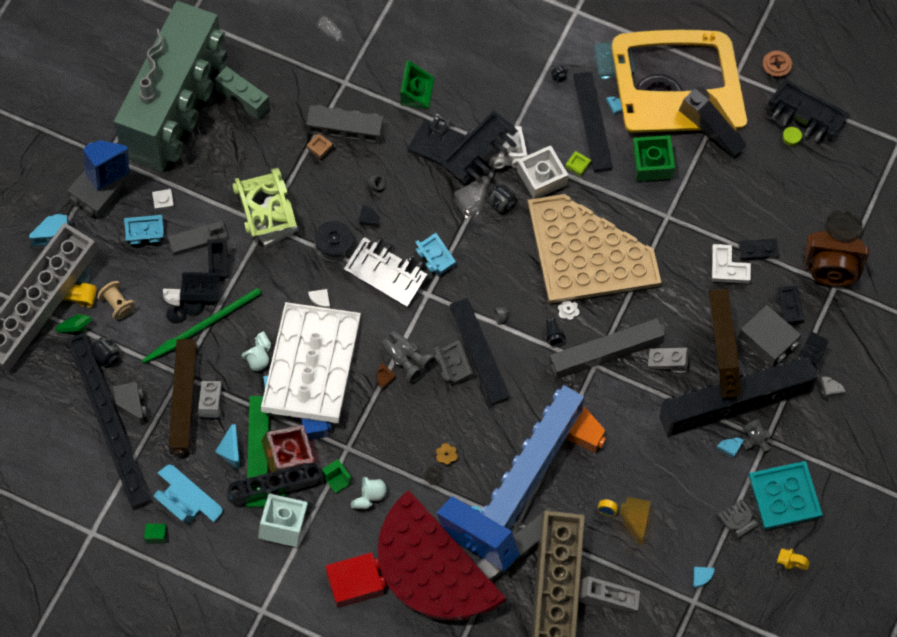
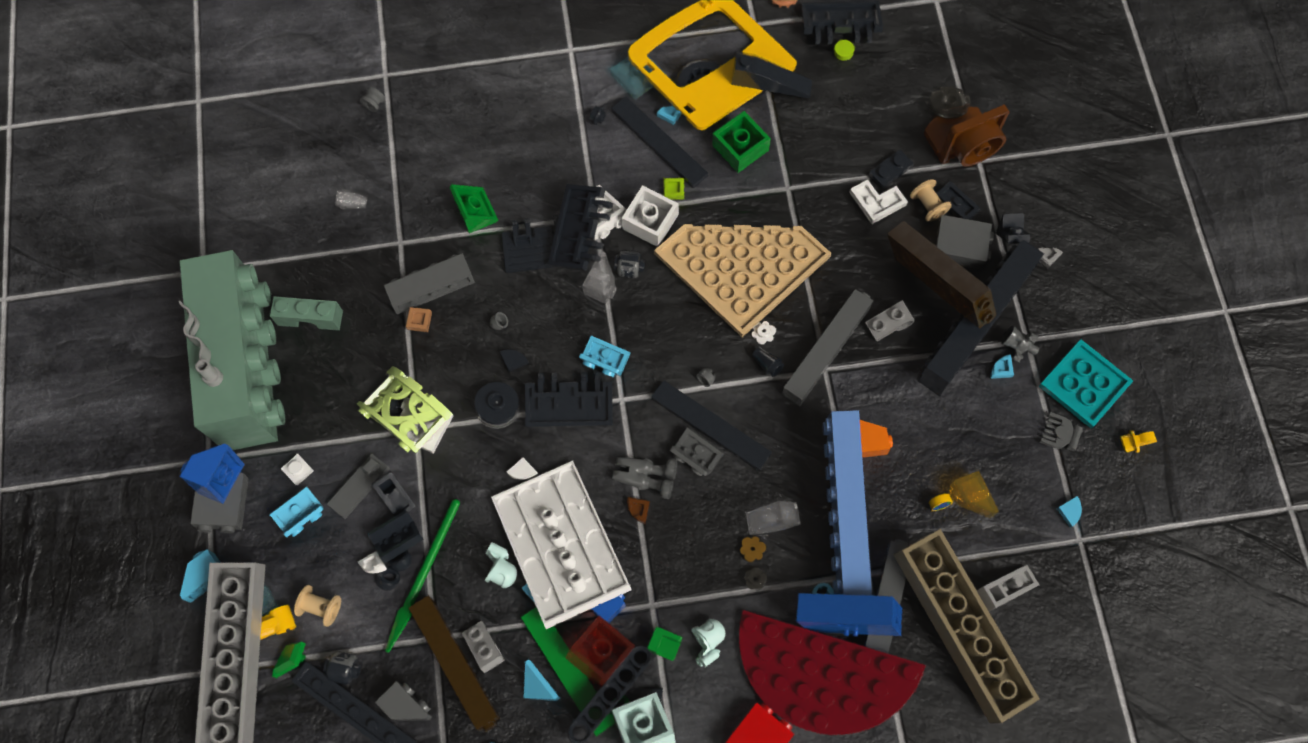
camera: 30 degrees left, 5 degrees up
(476, 441) = (773, 517): none -> clear slope
(768, 289) = (930, 200): none -> tan hose

